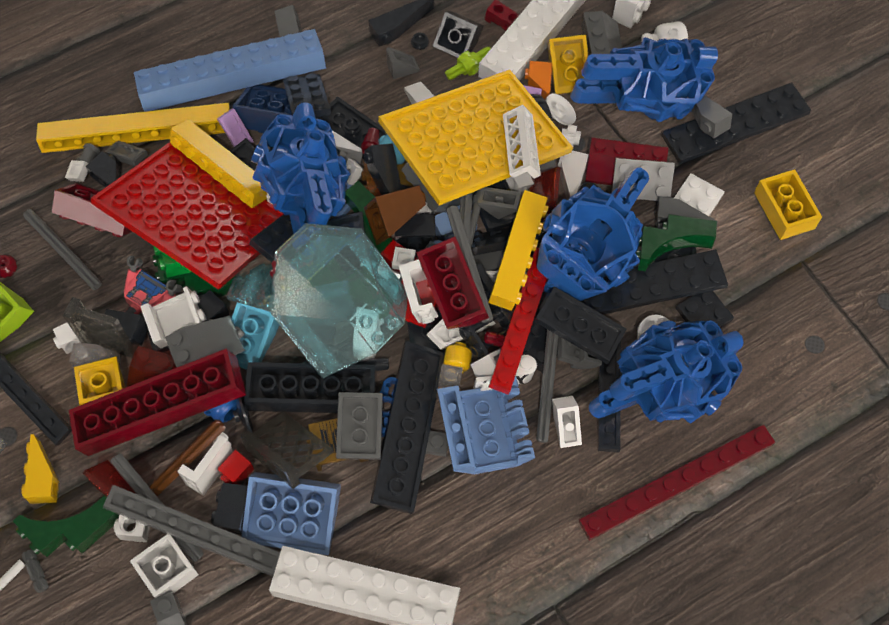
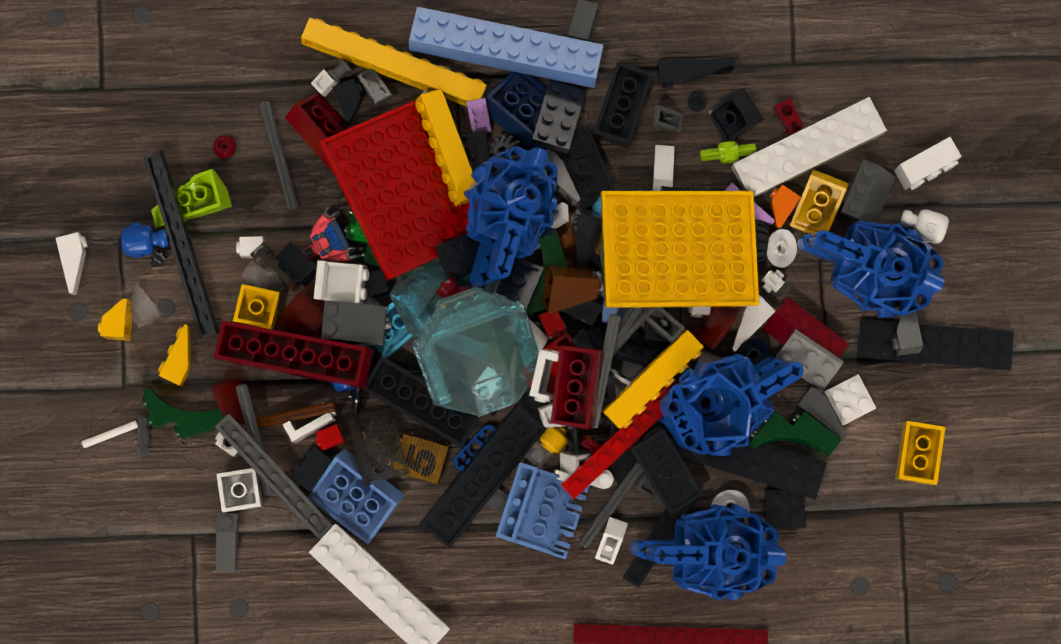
camera: 30 degrees right, 20 degrees up
(358, 66) = (622, 104): none -> black brick
(359, 426) = (441, 461): dark grey plate -> none
(371, 138) = (591, 195): dark red cone -> none
(402, 256) = (553, 334): white plate -> none
(526, 138) = (716, 282): white fence -> none

